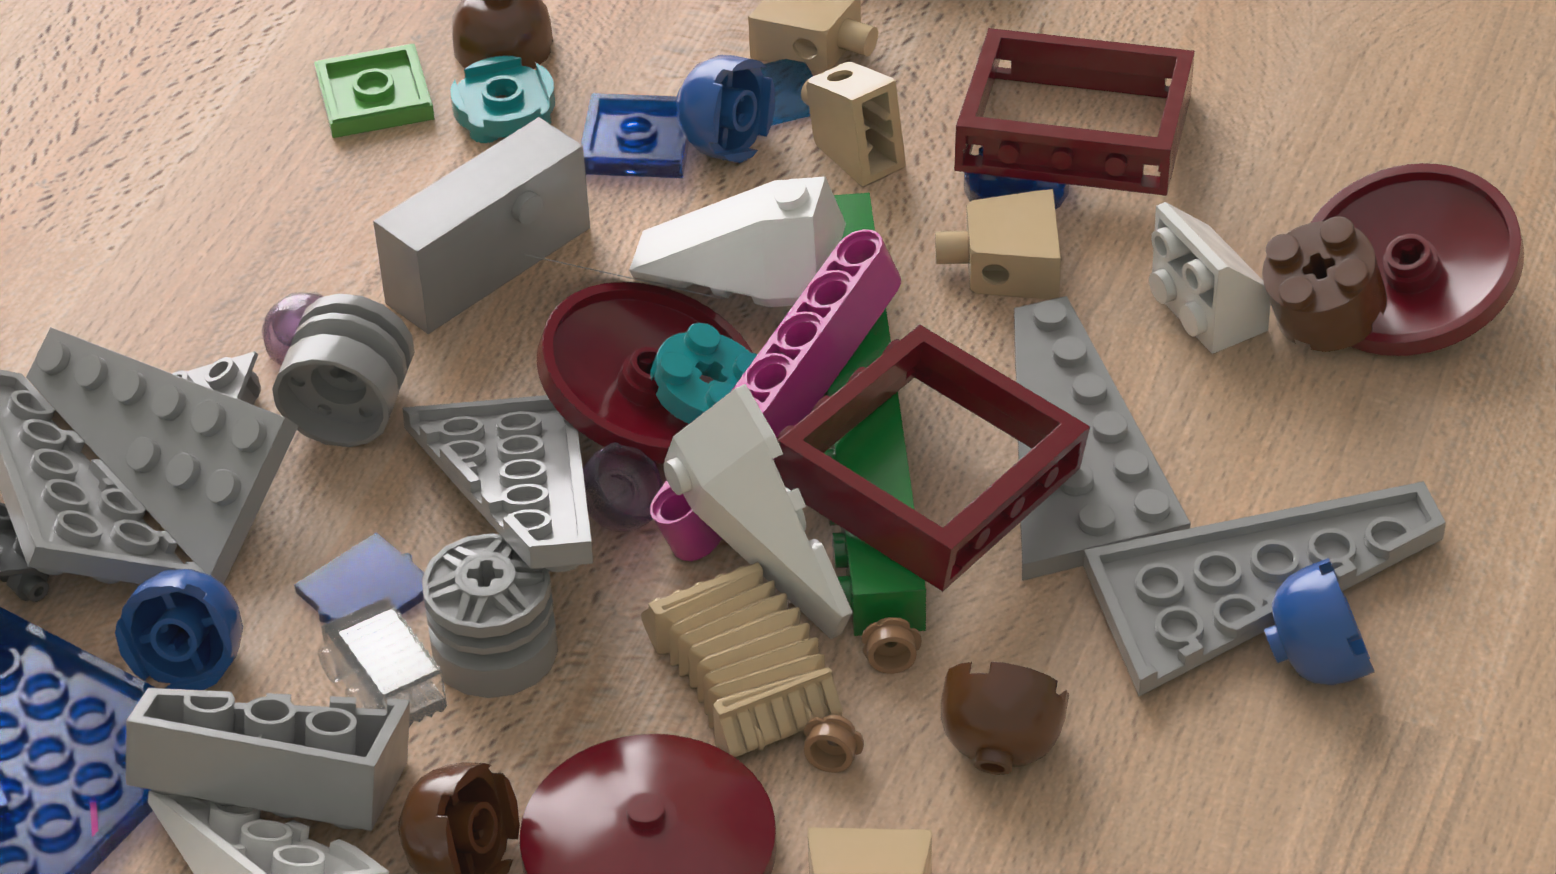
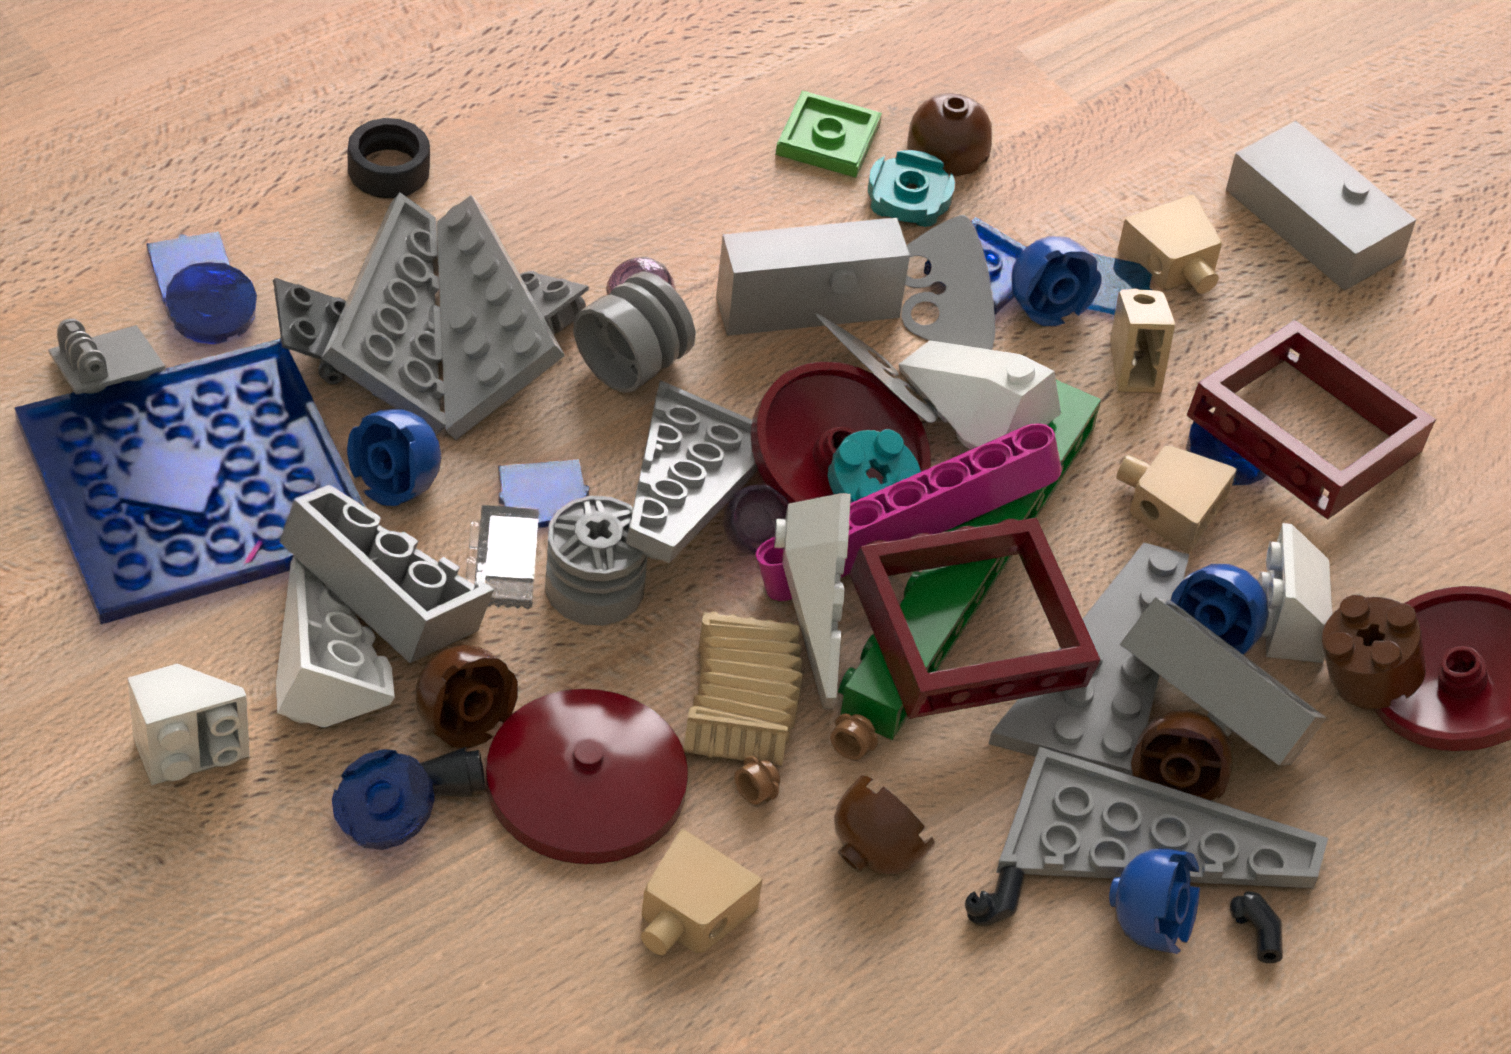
camera: 25 degrees right, 5 degrees up
(647, 171) = (968, 302): none -> light grey piece
(1148, 329) = (1226, 603): none -> blue cylinder
(1169, 722) = (999, 904): none -> black arm
(1220, 384) = (1223, 682): none -> light grey brick
(1233, 475) = (1184, 754): none -> reddish brown cylinder
(1431, 595) = (1266, 922): none -> black arm

